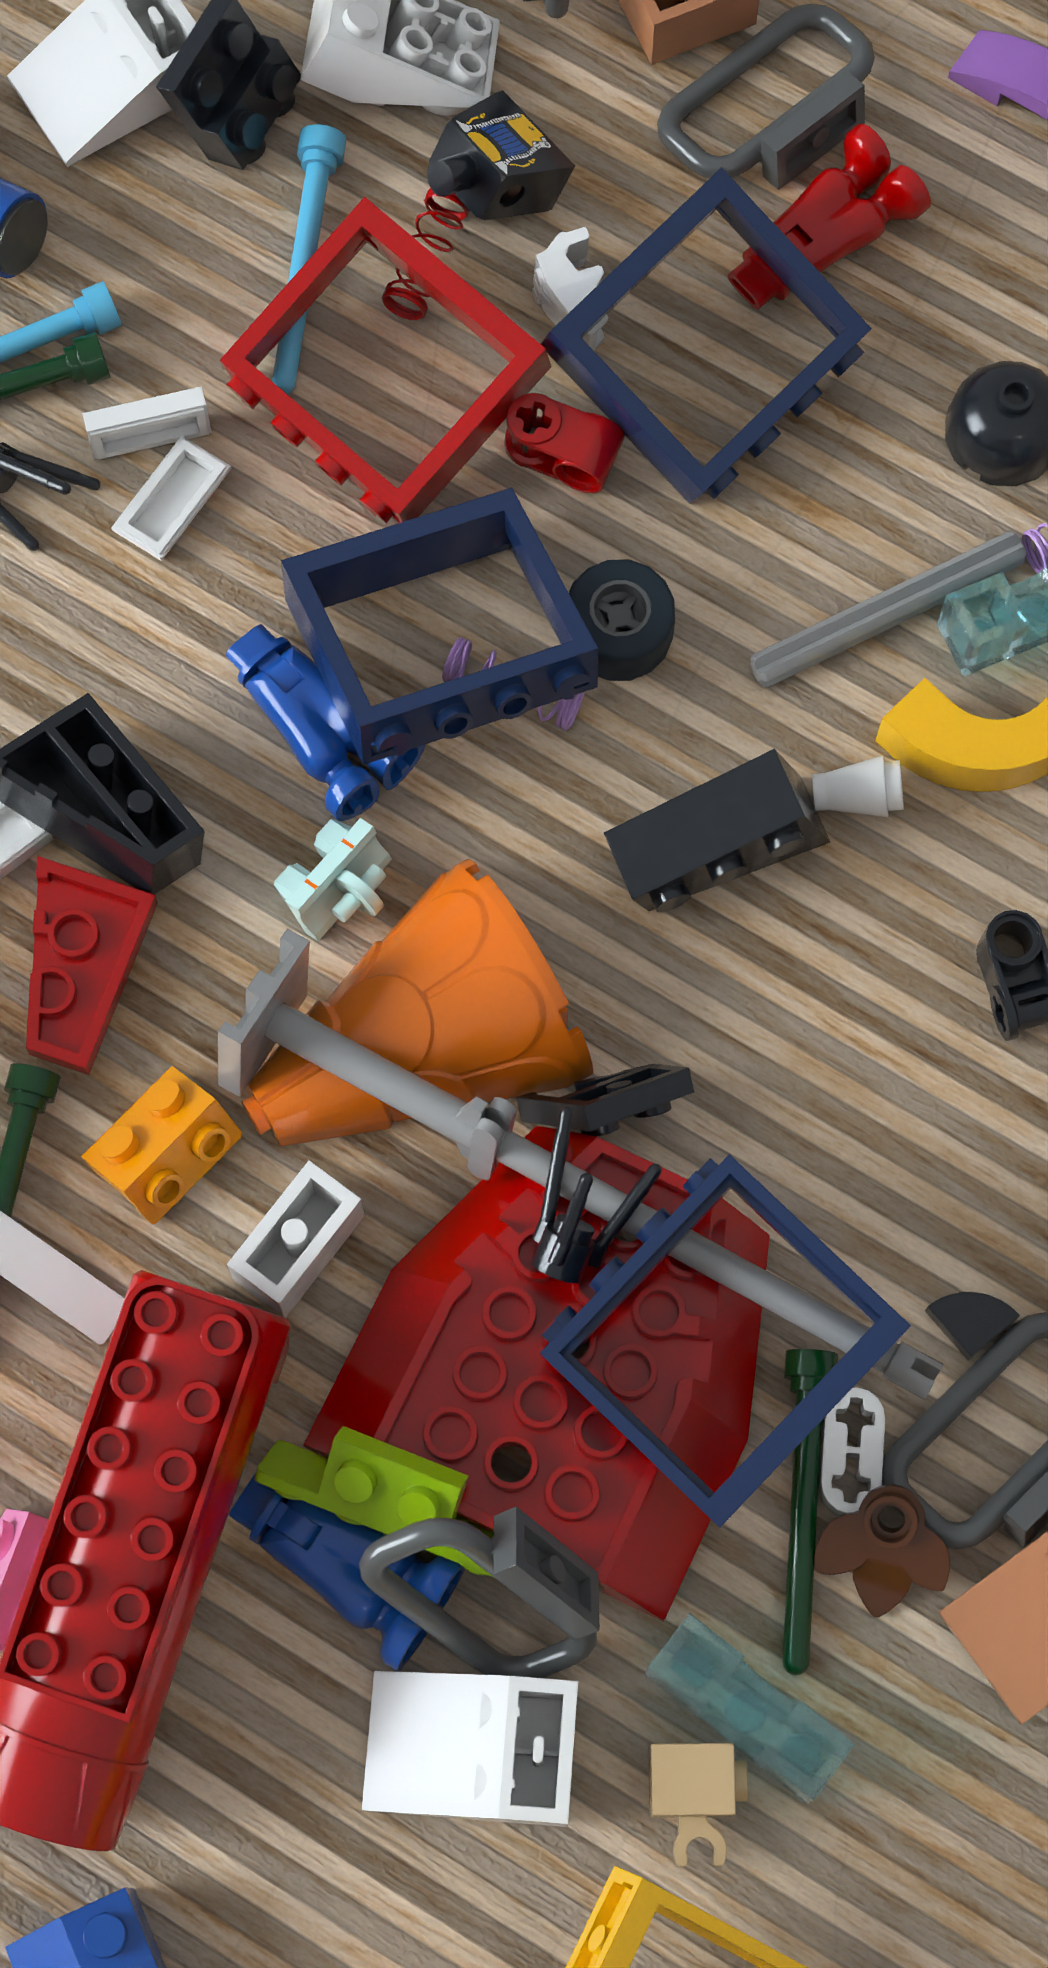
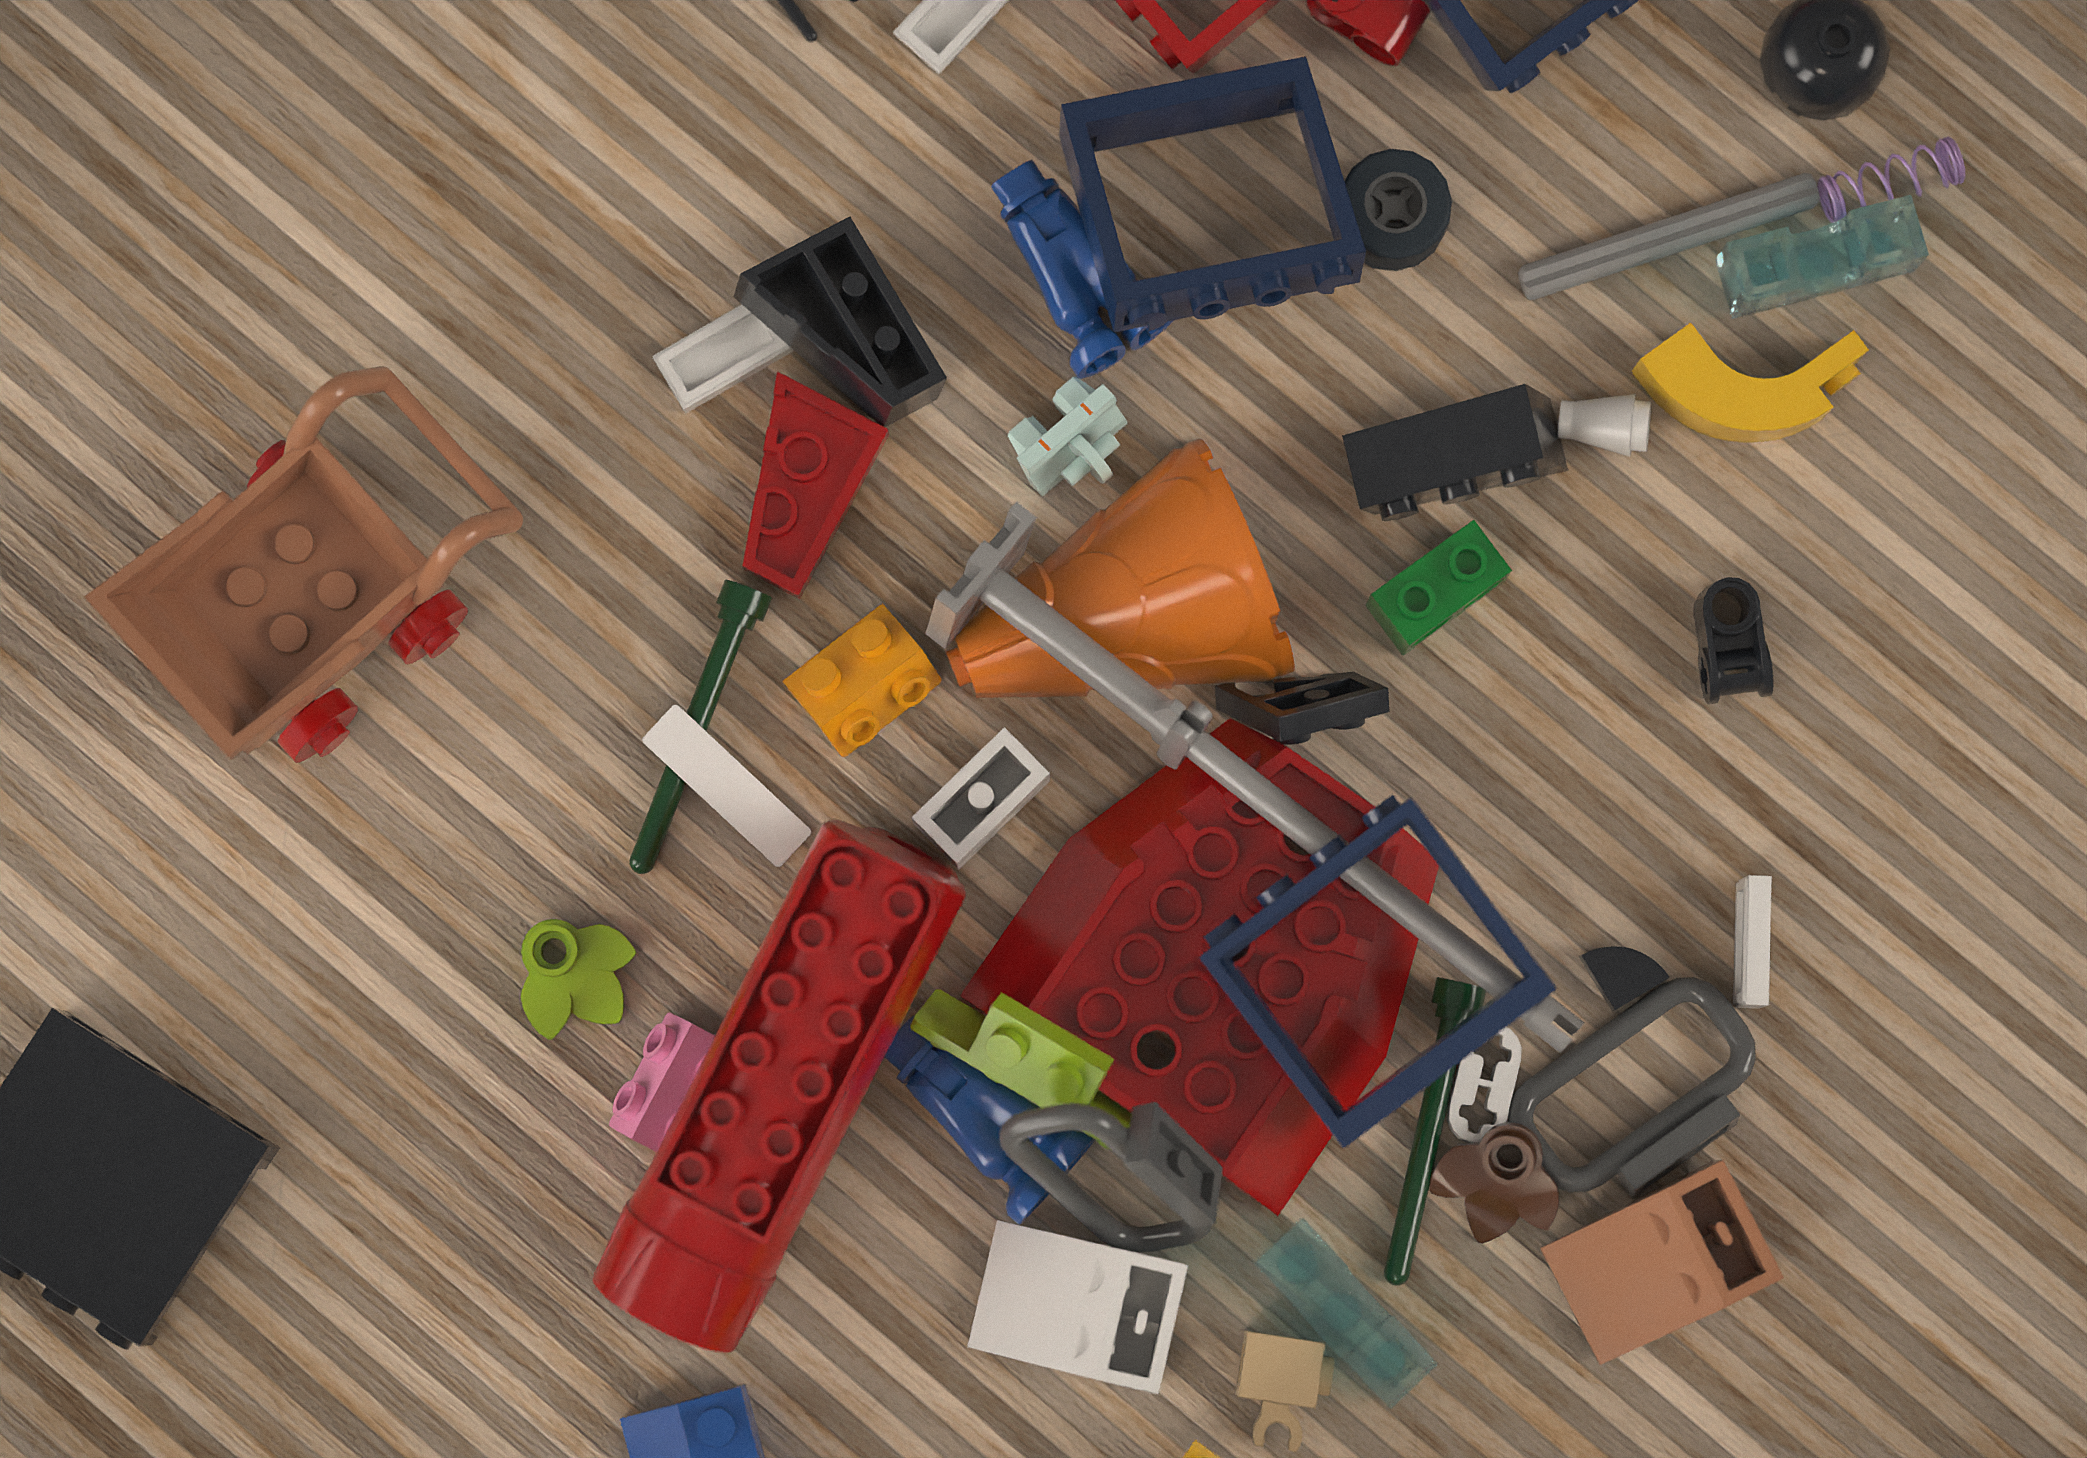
camera: 10 degrees right, 10 degrees up
(455, 668) = (1222, 231): lavender piece -> none
(566, 1242) = (1242, 850): black plant -> none
(722, 966) = (1438, 587): none -> green brick

